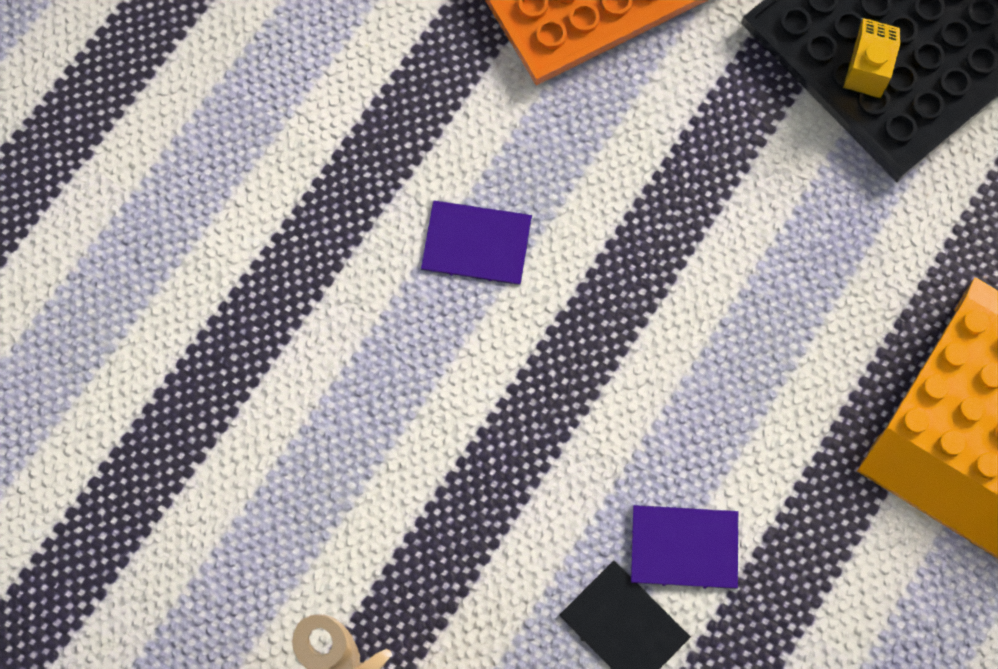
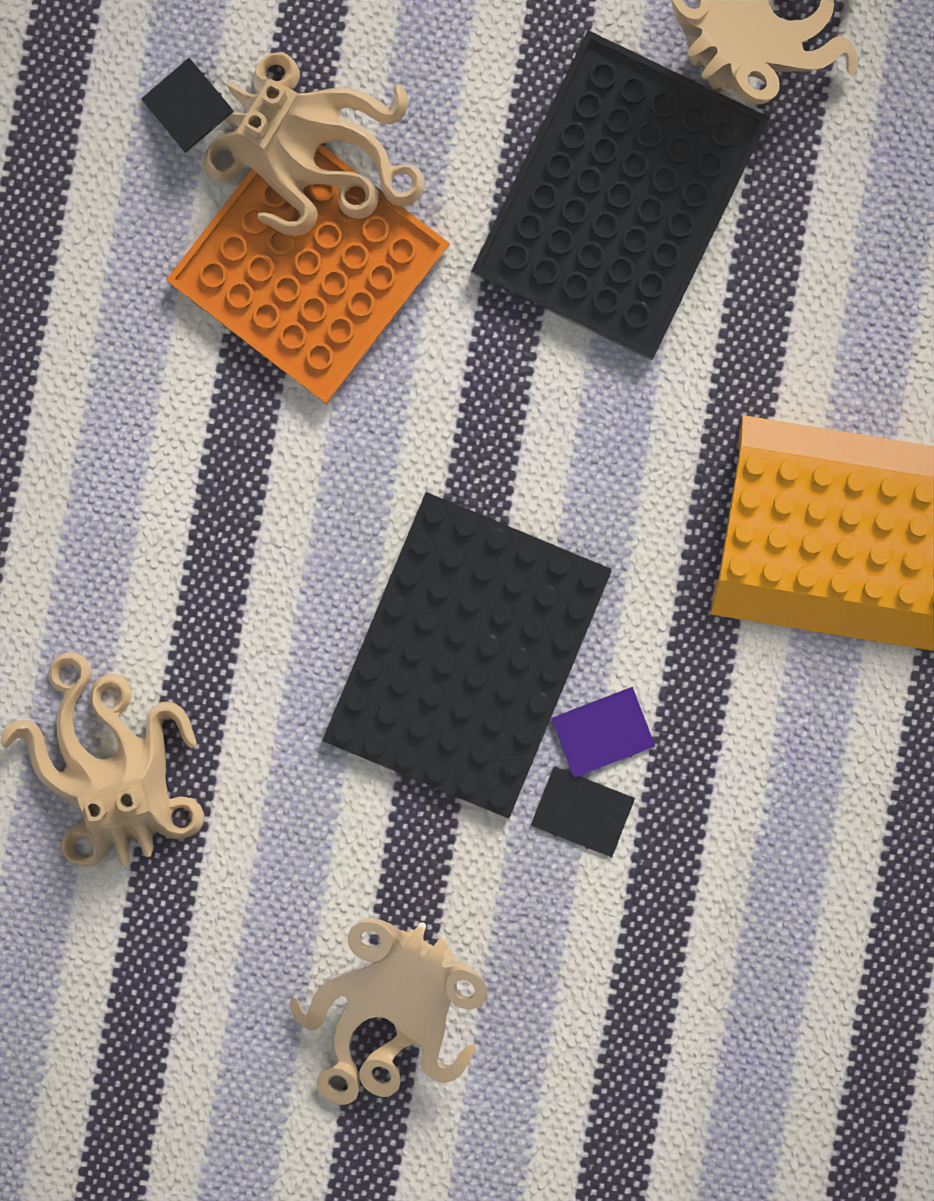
camera: 25 degrees left, 15 degrees up
(124, 380) = (117, 794): none -> tan hips
(476, 242) = (338, 559): dark purple window -> none
(569, 401) = (467, 655): none -> black plate
(873, 58) = (591, 264): yellow slope -> none

